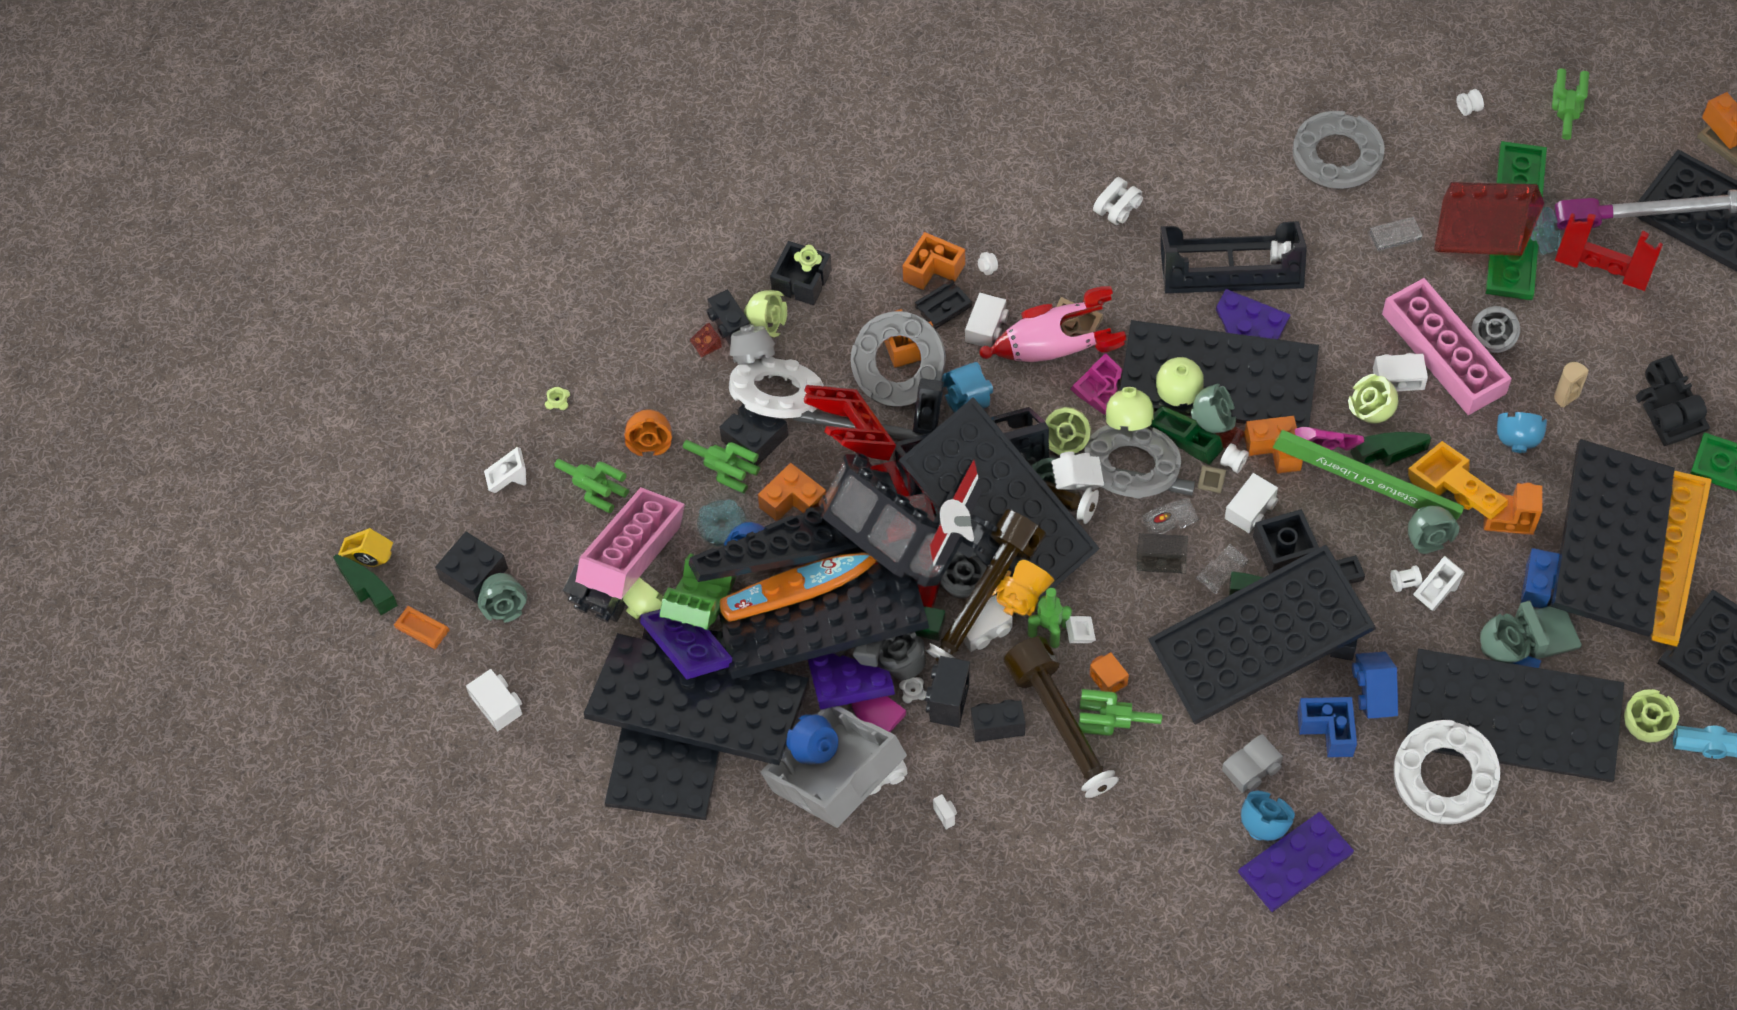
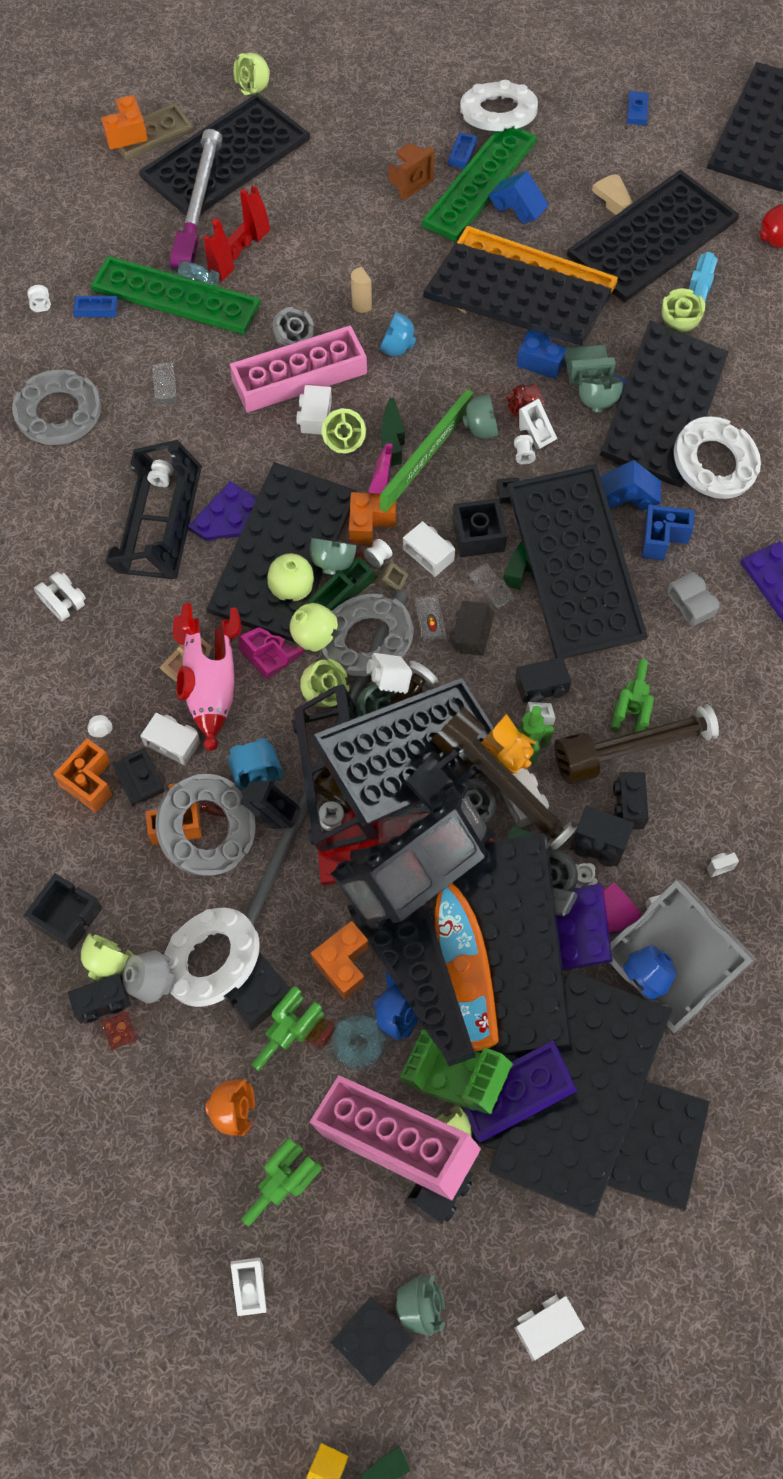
camera: 85 degrees left, 5 degrees up
(421, 627) = (436, 1415): orange tile -> none
(554, 393) = (151, 1207): yellowish green plate -> none
(723, 492) = (321, 1033): none -> clear red slope
(809, 251) = (53, 889): yellowish green plate -> none
(868, 436) = (245, 885): red wedge -> none
(956, 518) = (443, 780): sticker -> none
(1108, 673) = (591, 697): orange brick -> none
(1116, 625) = (543, 680): none -> black brick
(1265, 817) = (751, 594): dark azure cylinder -> none
(1448, 469) = (426, 398): light orange plate -> none
(1473, 565) = (522, 396): none -> clear red brick
(1477, 153) = (95, 306): none -> blue plate
(1488, 218) = (179, 306): clear red slope -> none
(1521, 513) = (474, 355): orange brick -> none
(1569, 102) = (64, 228): bright green plant -> none
(1671, 404) = (393, 233): black plate -> none

